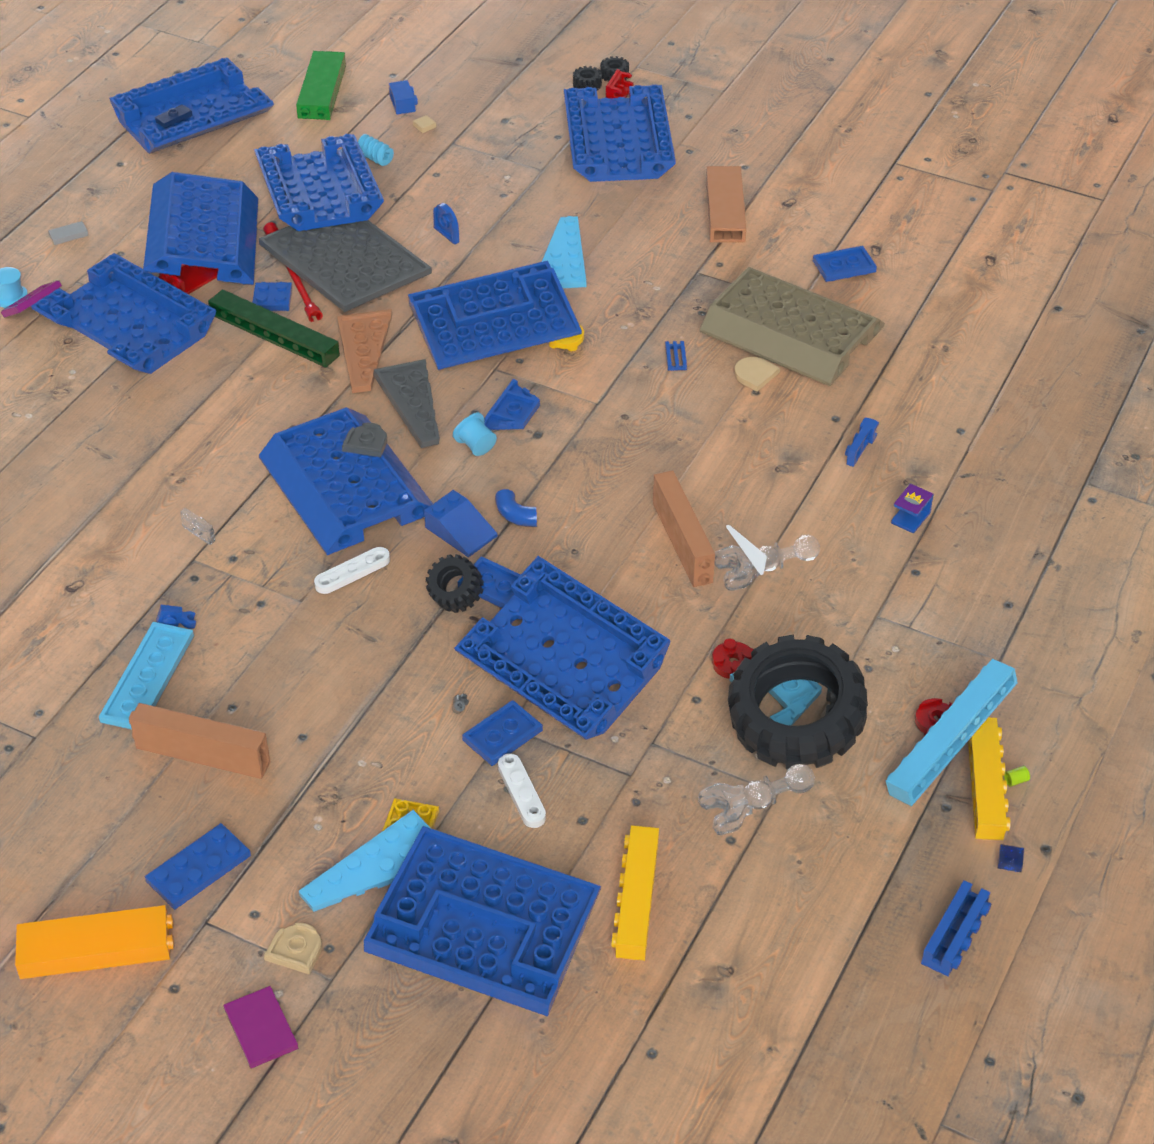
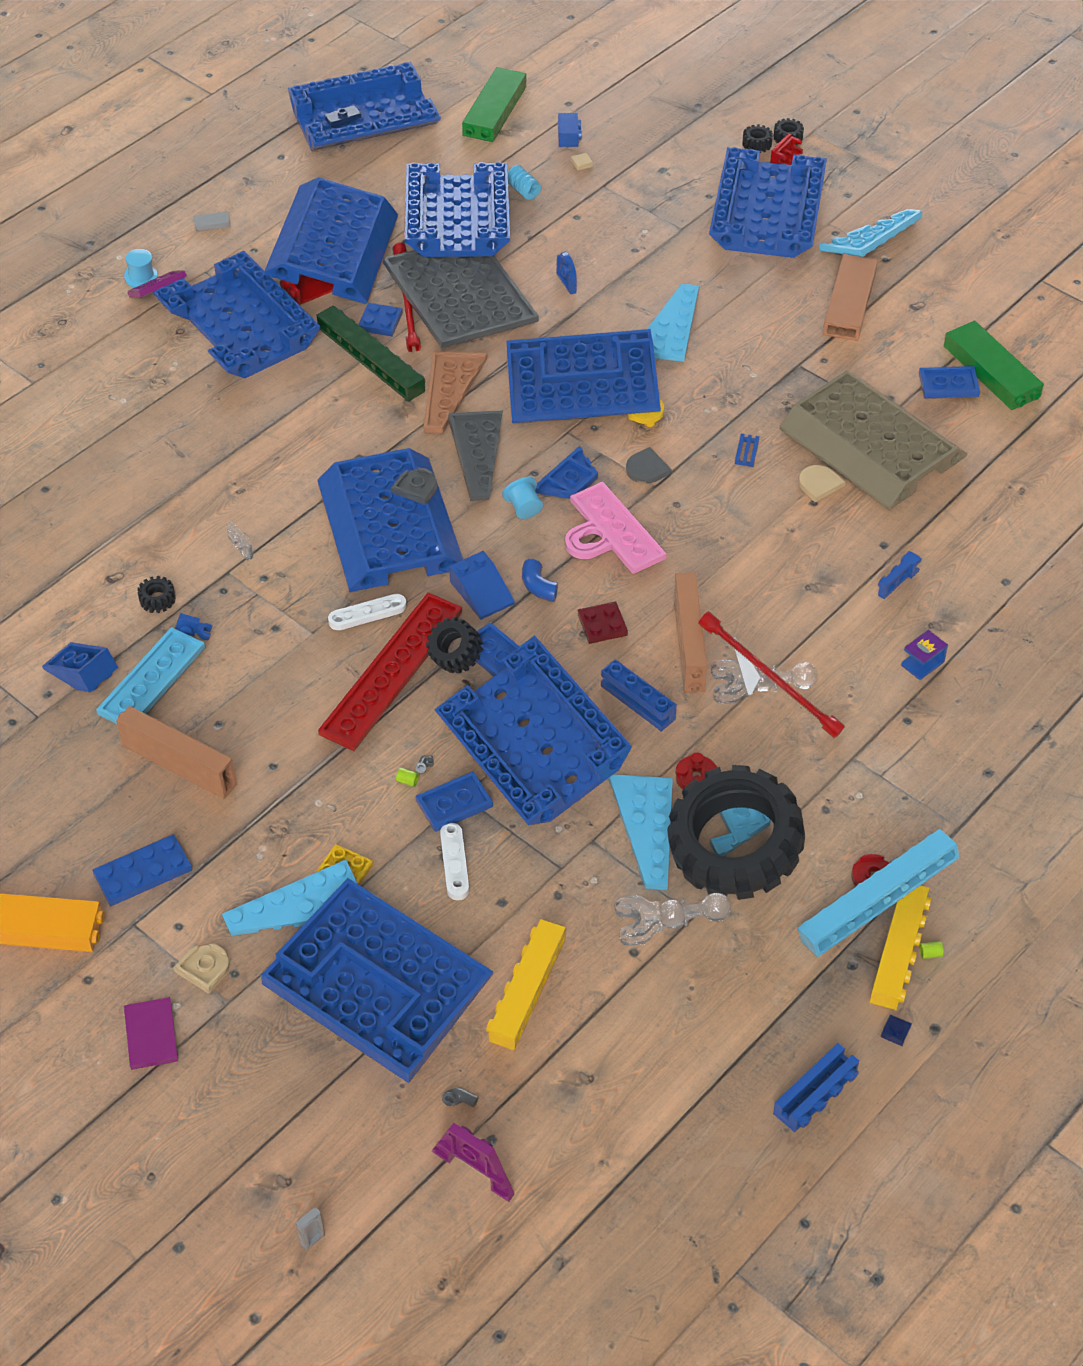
camera: 15 degrees right, 5 degrees up
(69, 677) = (82, 666): none -> blue slope
(123, 585) = (154, 586): none -> black tyre
(392, 625) = (386, 674): none -> red plate
(446, 719) = (407, 777): none -> lime hinge
(573, 445) = (615, 526): none -> bright pink plate
(584, 387) = (647, 467): none -> dark grey tile
(591, 537) = (602, 622): none -> dark red plate
(605, 1016) = (459, 1095): none -> dark grey arm
(647, 1064) = (478, 1154): none -> magenta wing
(652, 596) = (638, 695): none -> blue brick
(701, 713) = (645, 813): none -> medium azure wing
(723, 151) = (868, 238): none -> medium azure wing
(846, 588) = (830, 724): none -> red hose
(881, 241) = (993, 365): none -> green brick

